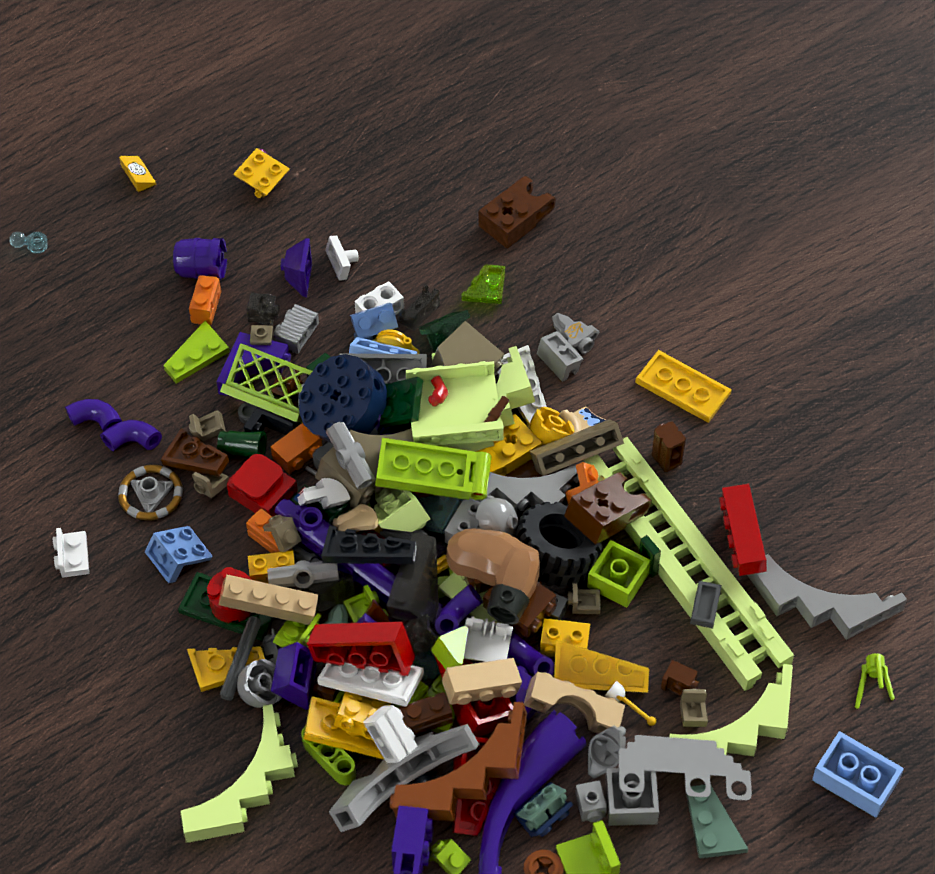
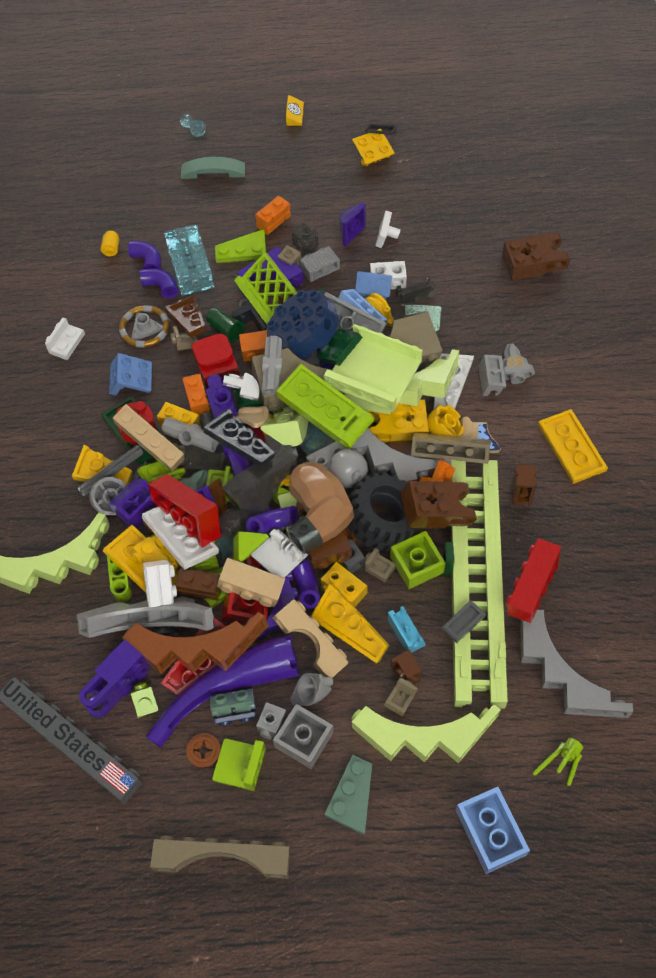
camera: 35 degrees right, 5 degrees up
(40, 421) = (110, 243): none -> yellow brick
(90, 277) = (212, 165): none -> sand green slope
(149, 394) = (185, 241): none -> clear light blue brick
(200, 257) = (289, 185): dark purple piece -> none
(207, 426) = (211, 299): dark tan bracket -> none
(273, 147) = (381, 126): none -> black piece
(283, 531) = (198, 397): dark tan bracket -> none
(440, 392) = (370, 353): red arm -> none
(487, 286) = (476, 299): clear neon green wing -> none
(495, 412) = (399, 389): reddish brown piece -> none
(618, 693) = (351, 650): hinge -> none
(652, 648) = (405, 630): none -> medium azure hinge
(681, 755) = (365, 733): light grey piece -> none

